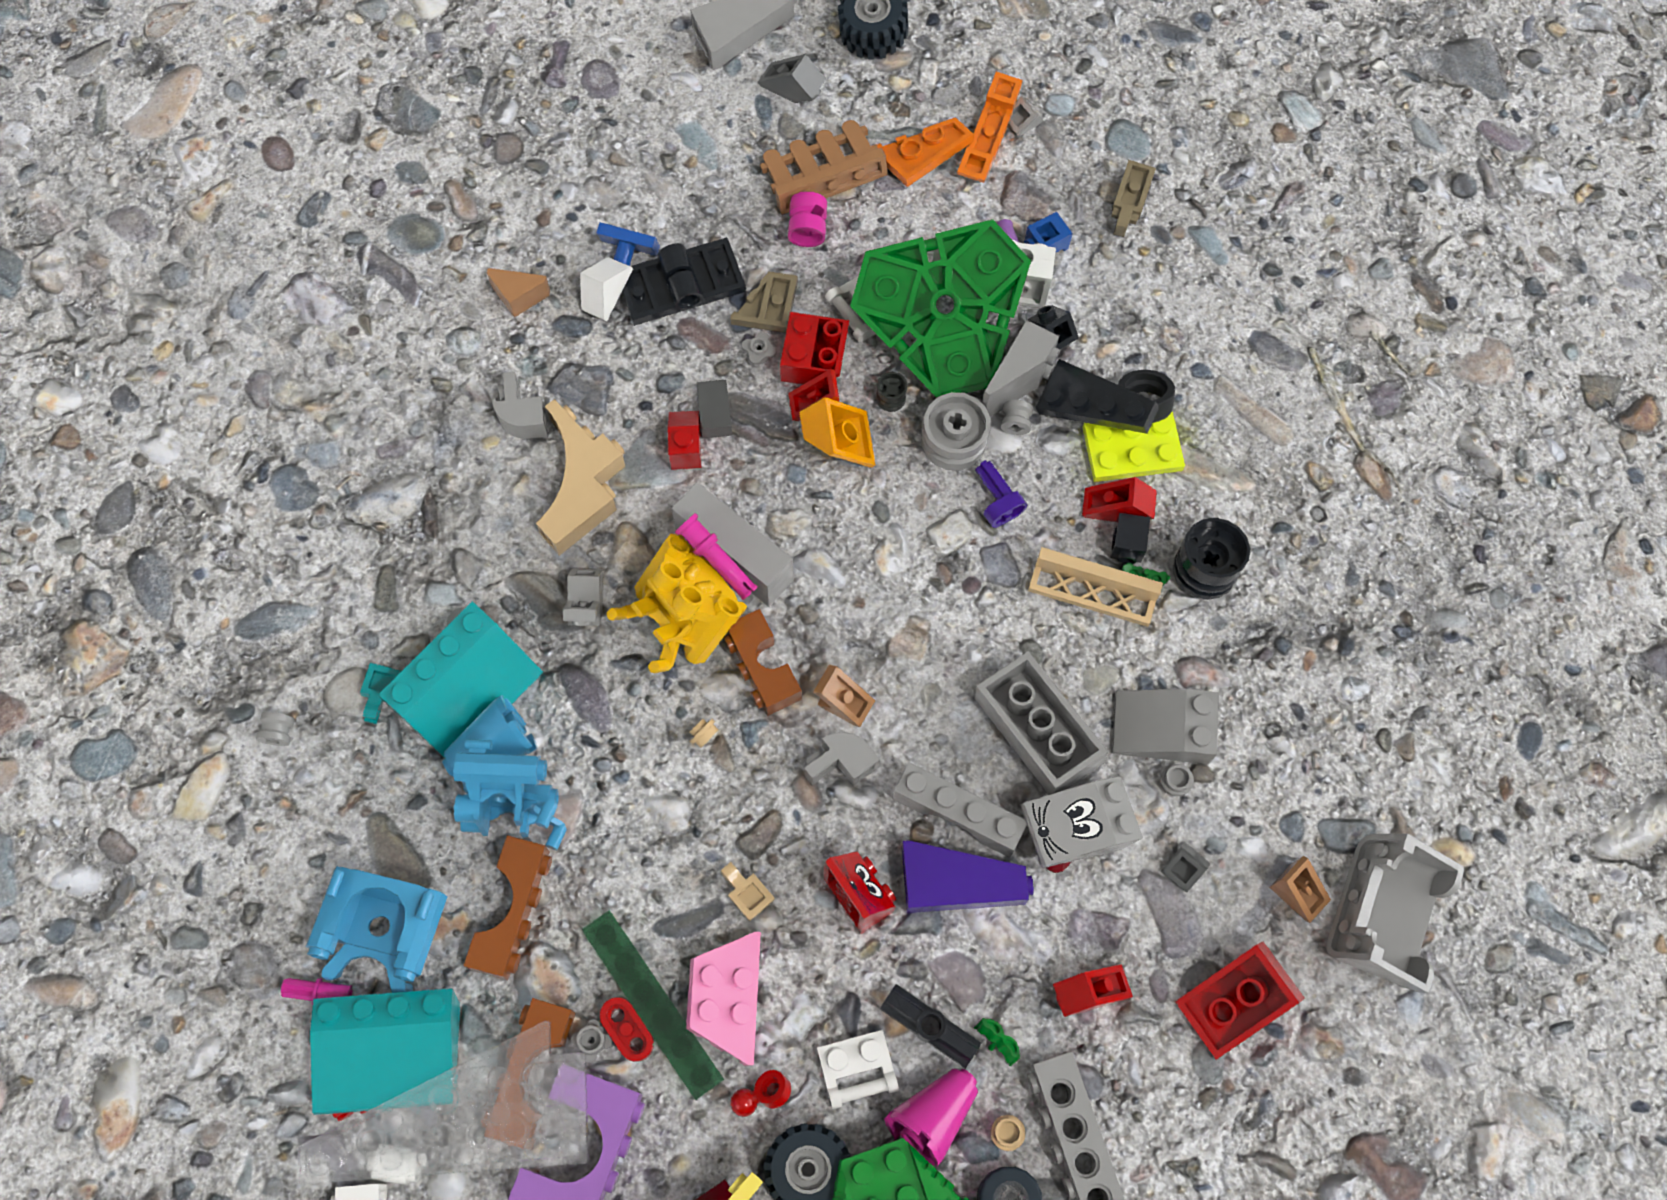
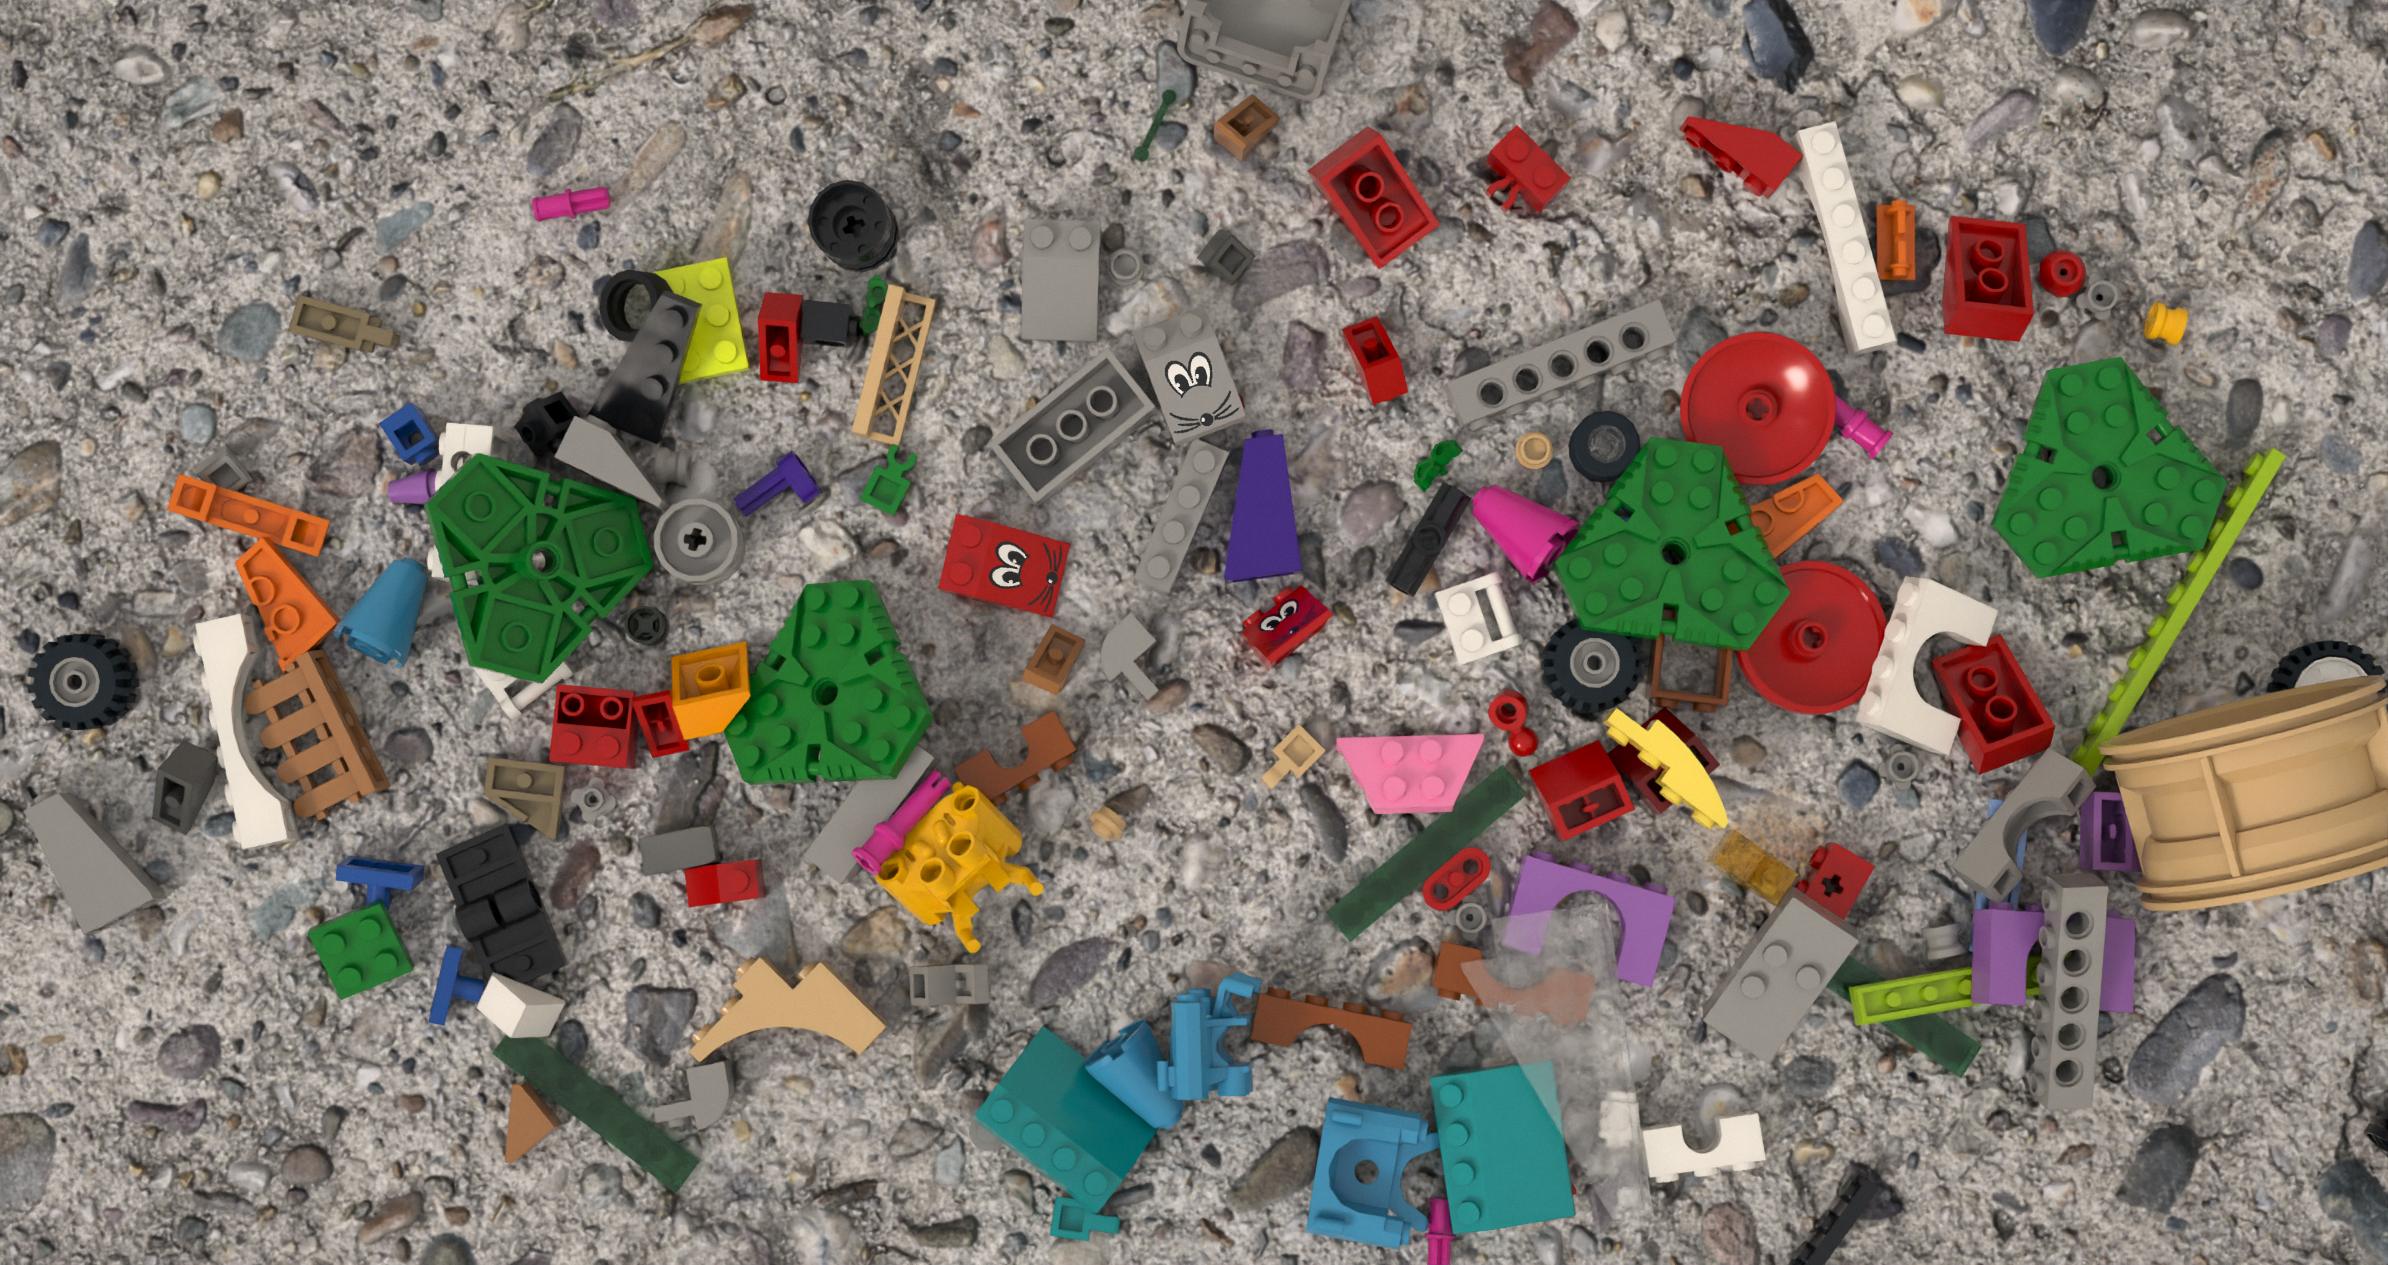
camera: 90 degrees left, 15 degrees up
(519, 342) = (599, 1109): none -> clear green tile
(661, 185) = (361, 949): none -> green plate
(693, 1150) = (1580, 790): none -> red slope
(713, 201) = (379, 876): none -> blue tile
(807, 219) = (399, 749): dark pink wheel -> none
(826, 519) = (830, 694): none -> green plate
(884, 111) = (228, 656): none -> white arch
(910, 211) = (387, 613): none -> dark azure cone
(925, 662) = (1003, 566): none -> red slope
(995, 576) = (887, 486): none -> green plate
(1227, 356) = (571, 203): none -> dark pink axle
(1267, 1144) = (1526, 170): none -> red brick
(1276, 801) = (1141, 153): none -> clear green hinge

